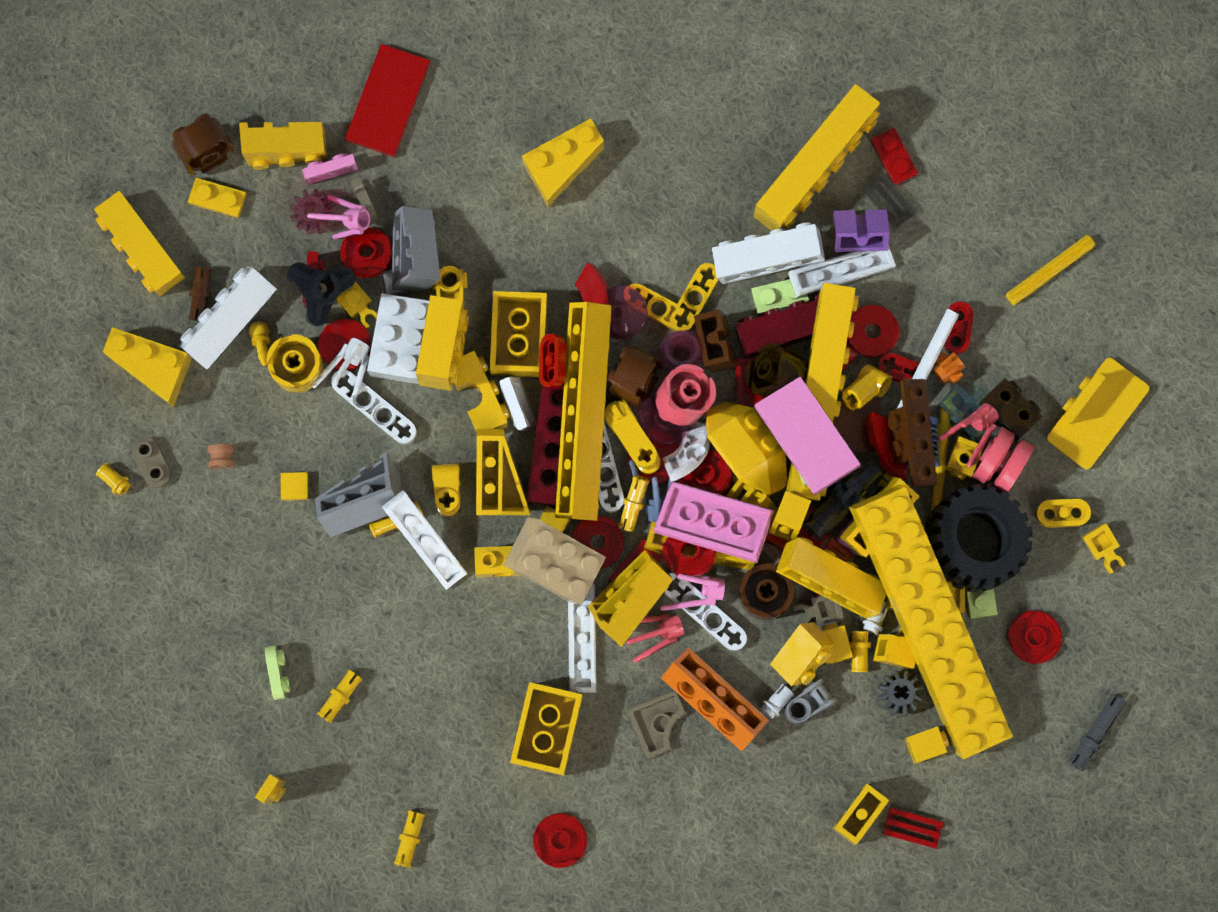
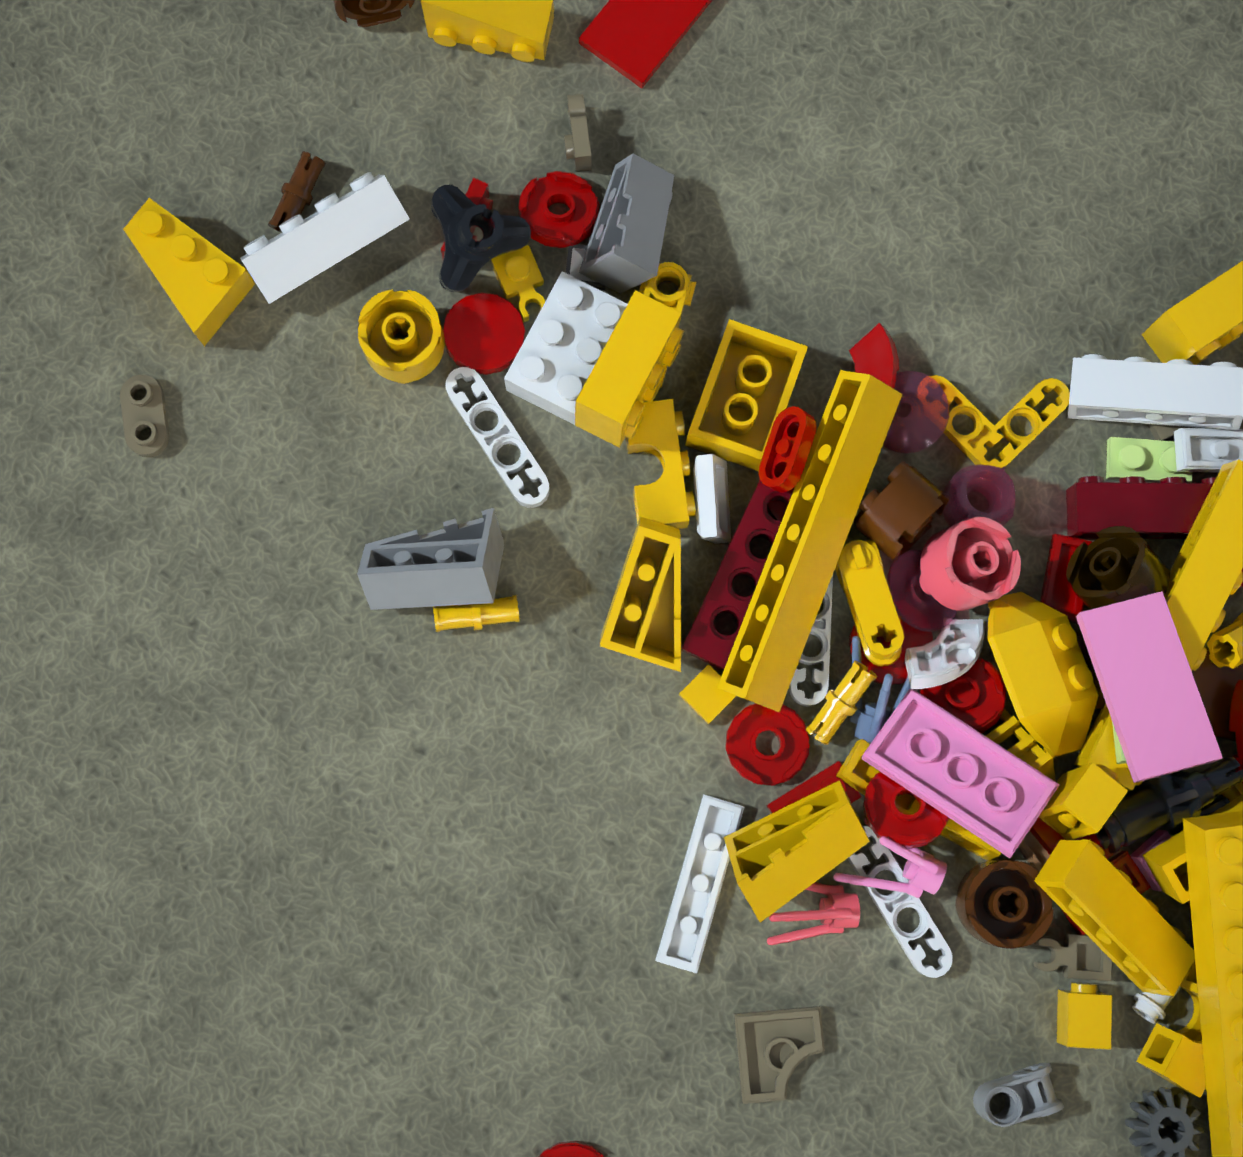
camera: 10 degrees right, 0 degrees up
(112, 478) = (81, 424): yellow pin -> none
(139, 244) = (231, 93): yellow brick -> none
(217, 197) = (367, 65): yellow plate -> none
(221, 456) = (248, 438): nougat wheel -> none
(259, 333) = (364, 278): yellow bar -> none
(271, 790) = (153, 970): yellow plate -> none
(278, 683) = (220, 805): yellowish green plate -> none
(294, 486) = (342, 516): yellow tile -> none
(300, 211) = (502, 139): clear pink gear -> none
(320, 171) = (529, 72): bright pink plate -> none
(339, 696) = (306, 855): yellow pin -> none
(353, 353) = (490, 347): white plant -> none
(355, 219) = (557, 151): bright pink plant -> none
(409, 839) = (341, 1110): yellow pin -> none
(424, 539) = (509, 658): white tile -> none
(446, 484) = (568, 585): yellow piece -> none
(490, 562) = (616, 728): yellow brick -> none
(546, 729) = (604, 1011): yellow brick -> none
(554, 561) = (697, 755): tan brick -> none
(563, 159) = (887, 161): yellow wedge -> none
(714, 699) = (877, 1047): orange brick -> none
(715, 350) = (1036, 481): reddish brown brick -> none
(777, 701) = (969, 1077): white pin -> none
(803, 654) = (1036, 1021): yellow brick -> none
(860, 651) = (1123, 1033): yellow pin -> none

